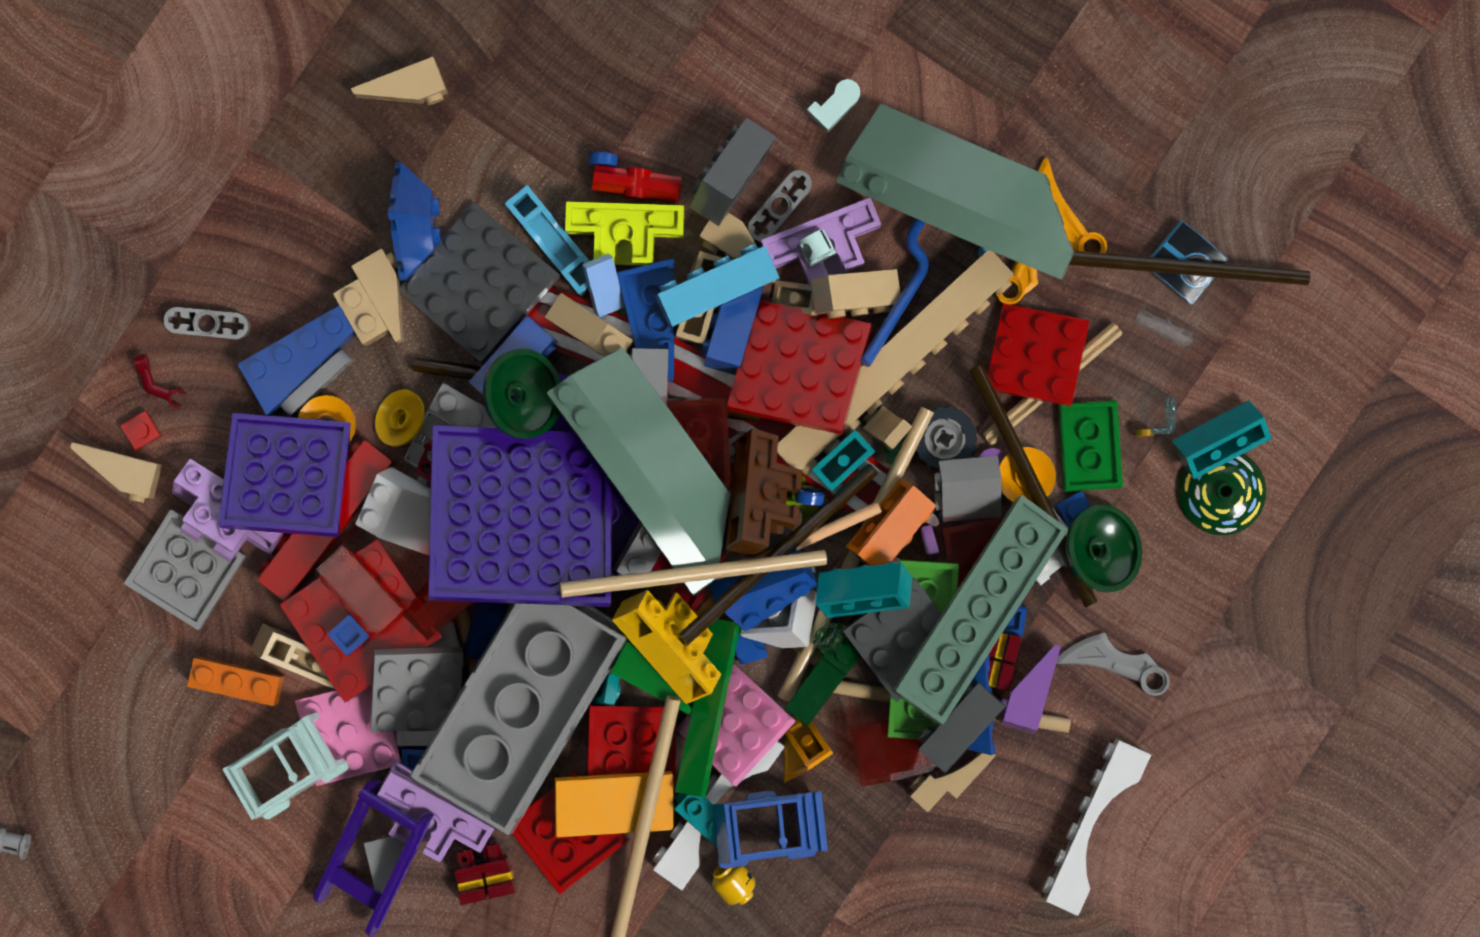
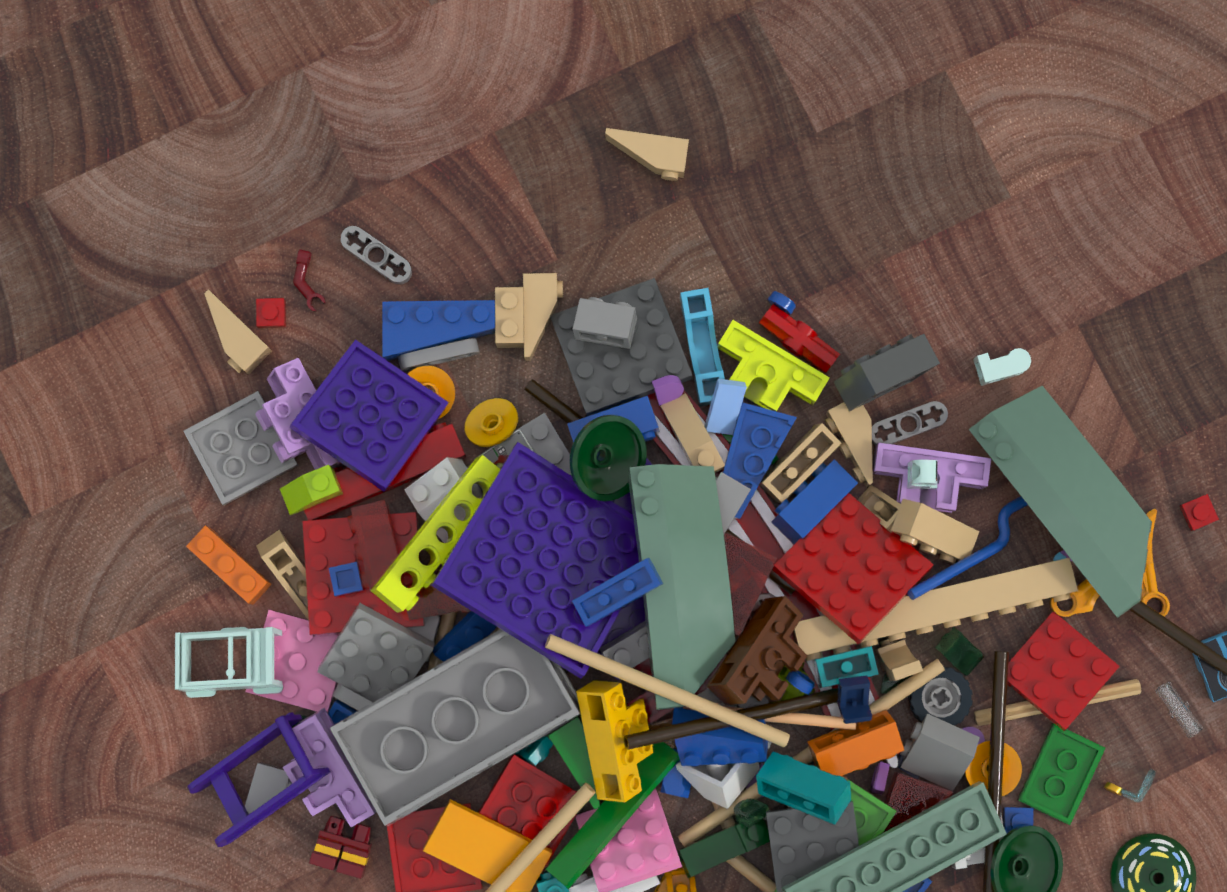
camera: 30 degrees right, 5 degrees down
(271, 572) = (311, 489): none -> lime slope
(391, 620) = (389, 586): none -> neon yellow brick
(412, 221) = (595, 265): blue wedge -> none
(451, 269) = (605, 322): none -> light grey brick
(542, 298) = (667, 389): none -> medium lavender tile
(598, 511) = (617, 592): none -> blue plate
(716, 286) = (821, 460): medium azure brick -> none
(866, 486) = (854, 699): none -> dark blue bracket
(939, 387) = (959, 651): none -> clear green bracket
(1087, 139) = (1199, 512): none -> red plate
(1221, 439) = (1178, 831): teal brick -> none

